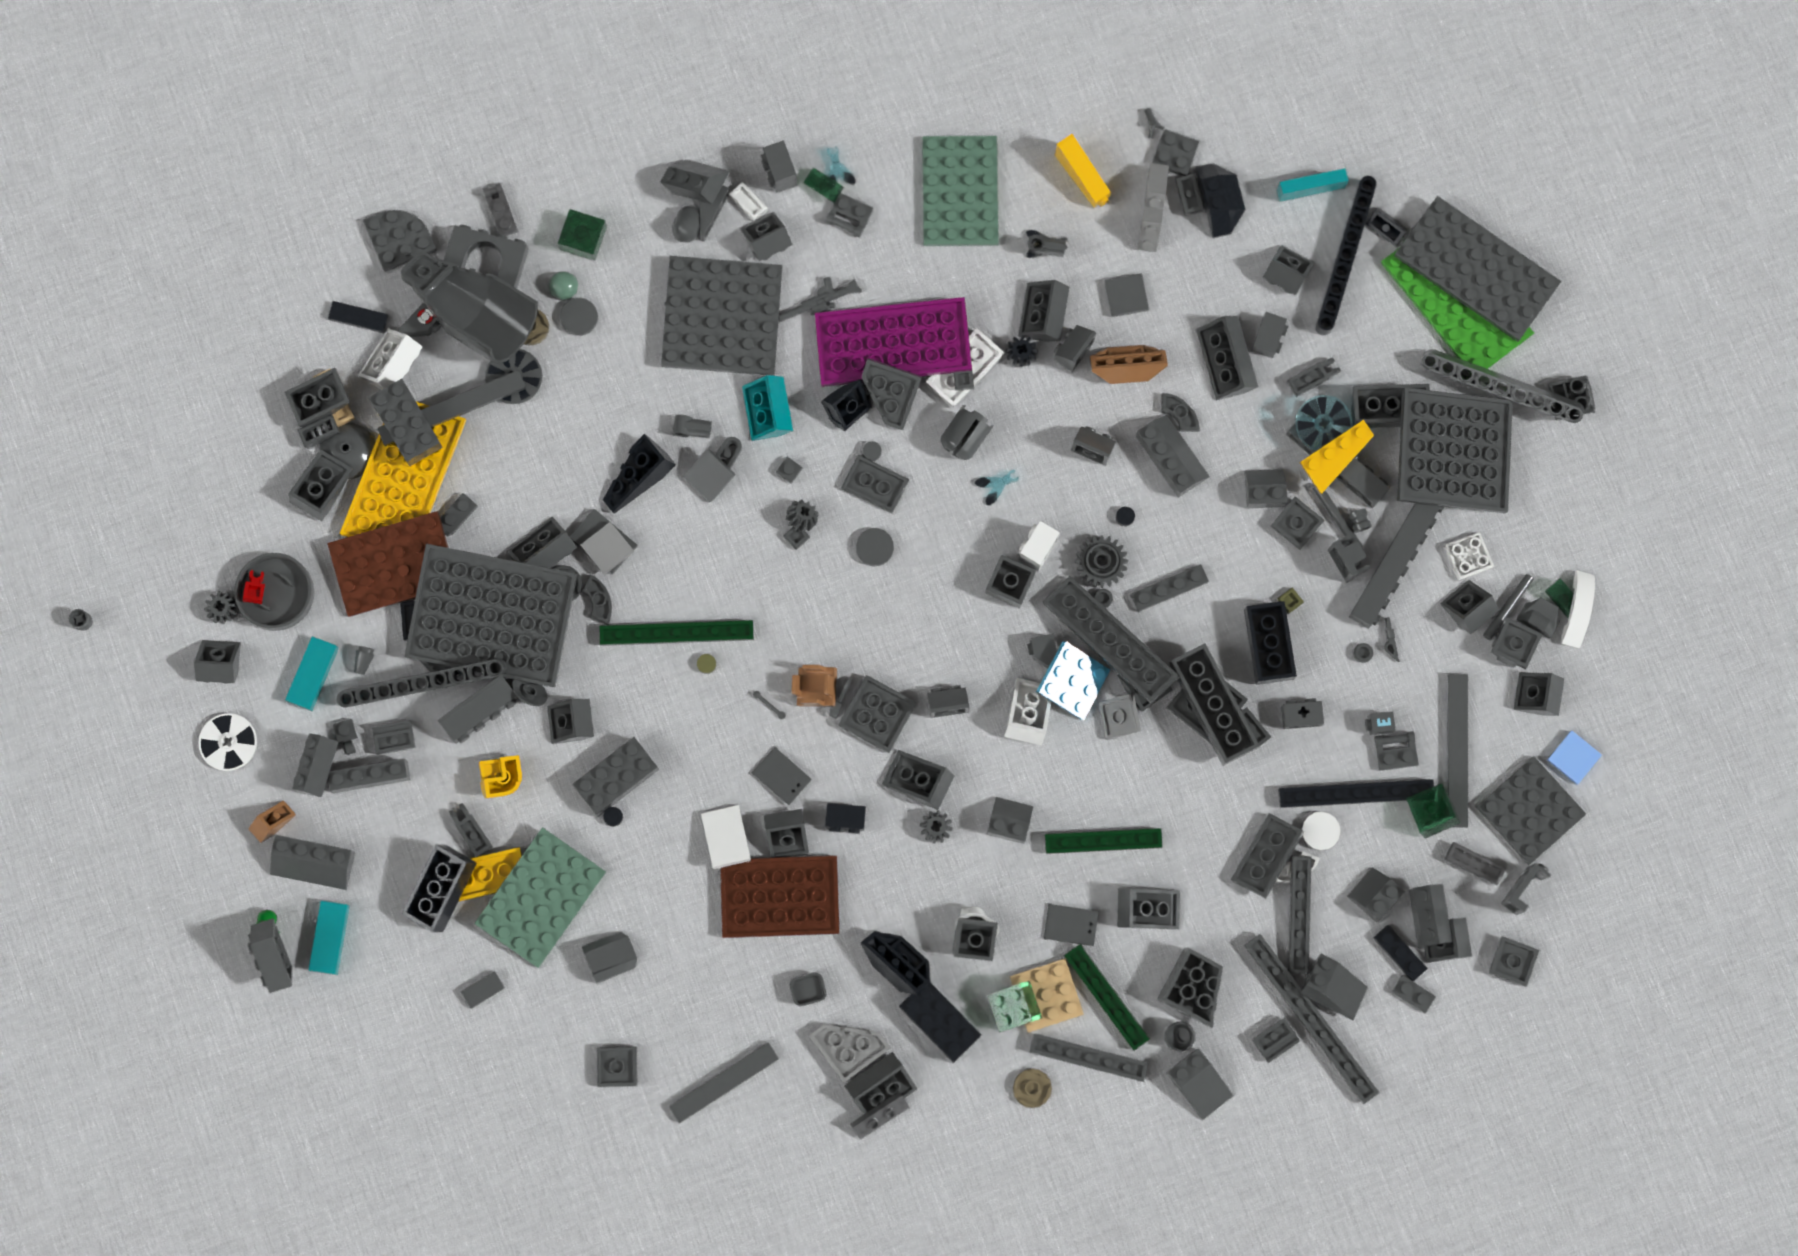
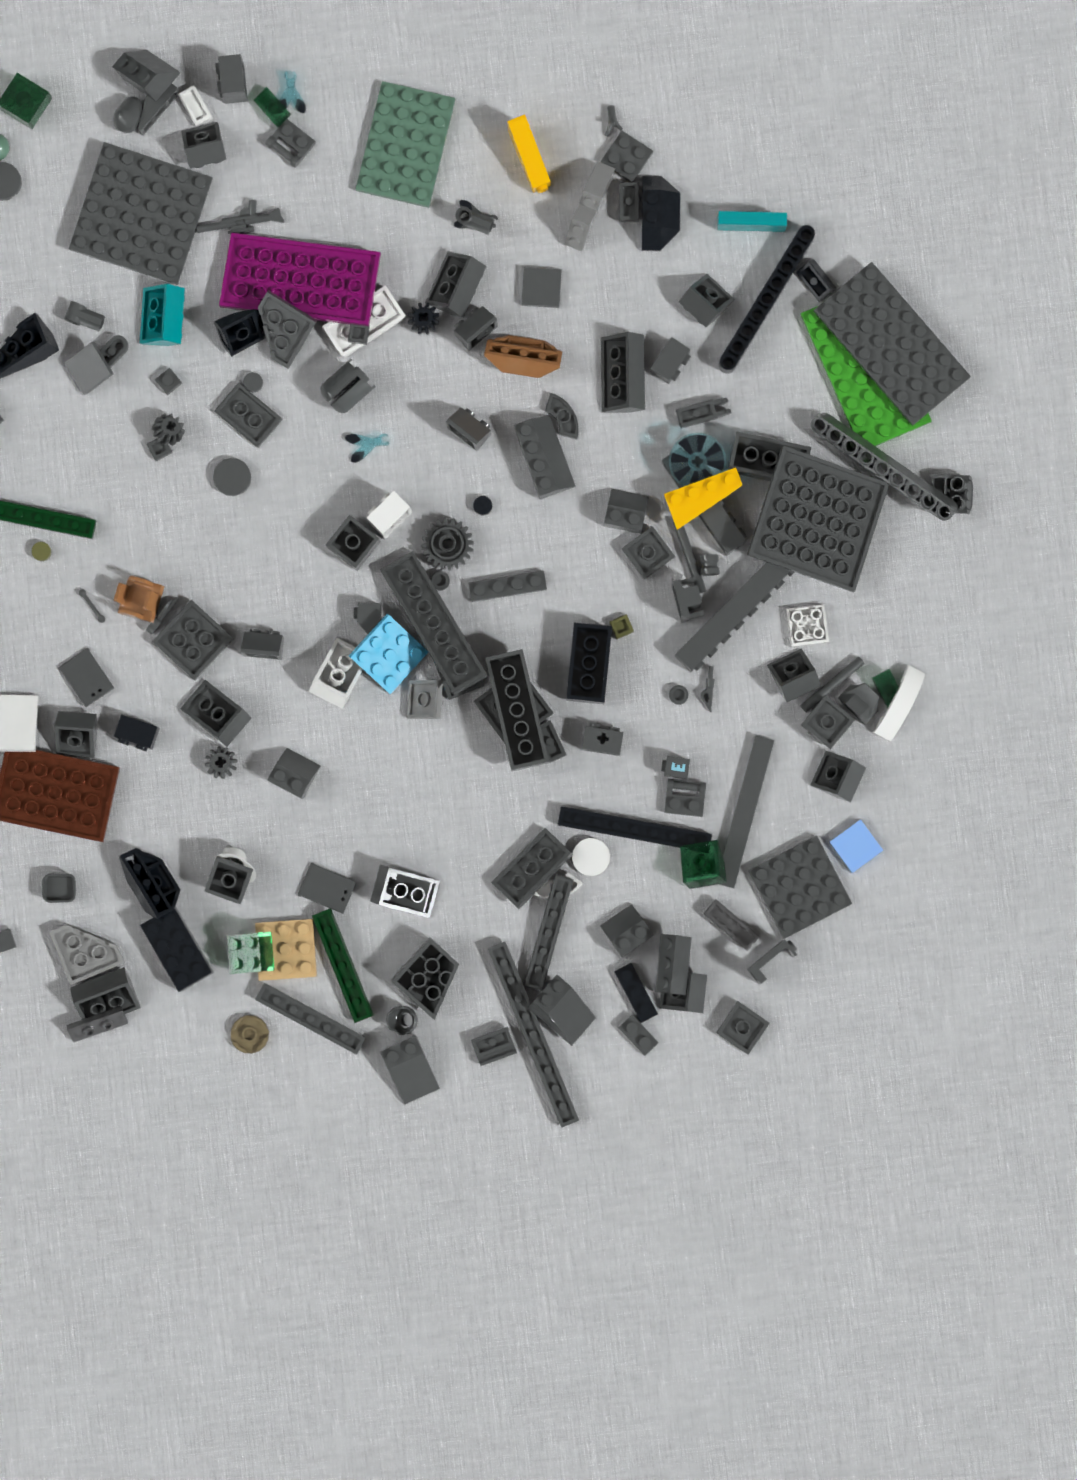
camera: 20 degrees right, 5 degrees up
(1103, 841) = (378, 815): dark green plate -> none

